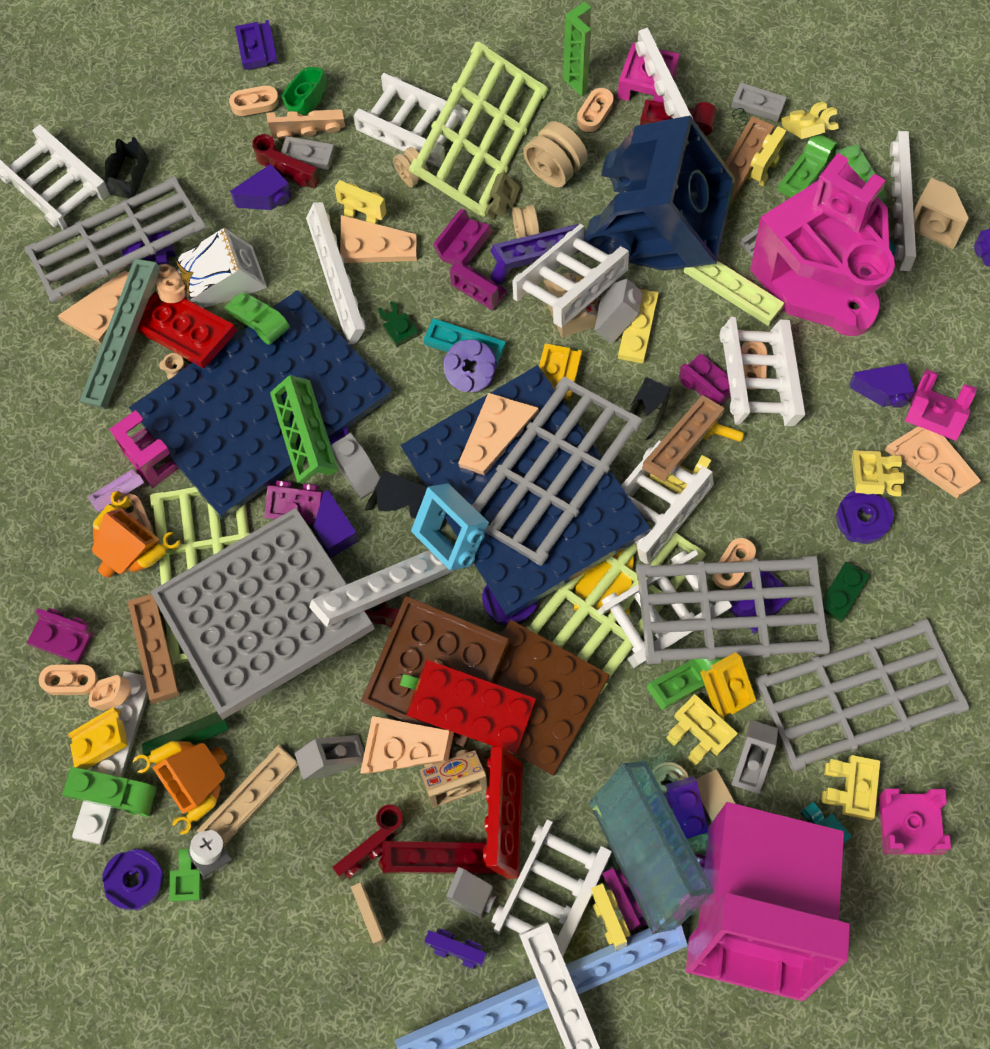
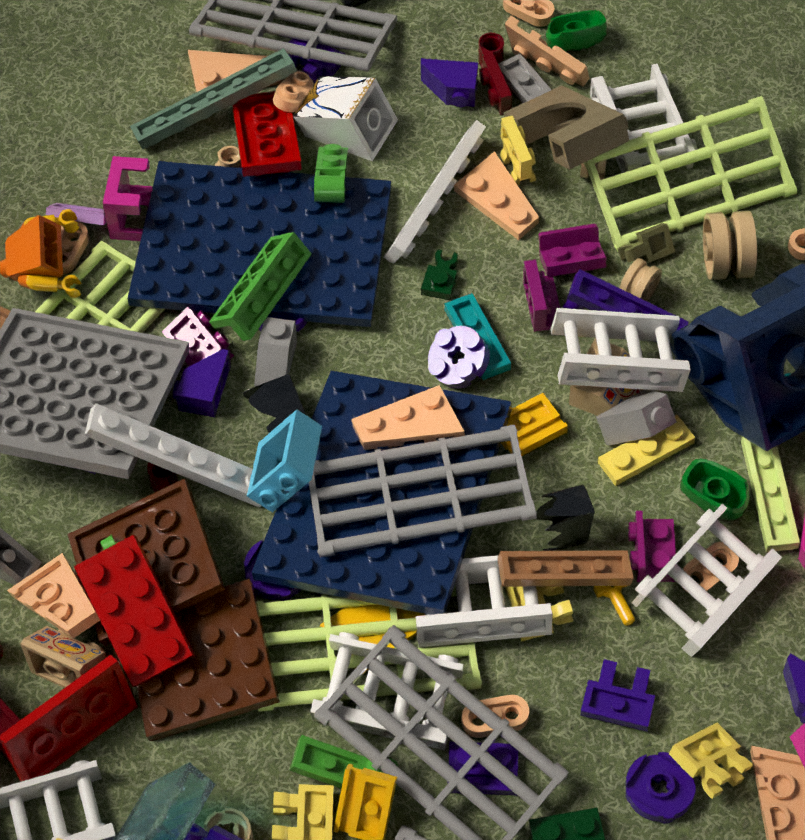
camera: 45 degrees right, 10 degrees down
(356, 151) = (574, 124): none -> dark tan arch
(706, 312) = (714, 484): none -> green piece
(790, 492) = (619, 704): none -> dark purple plate

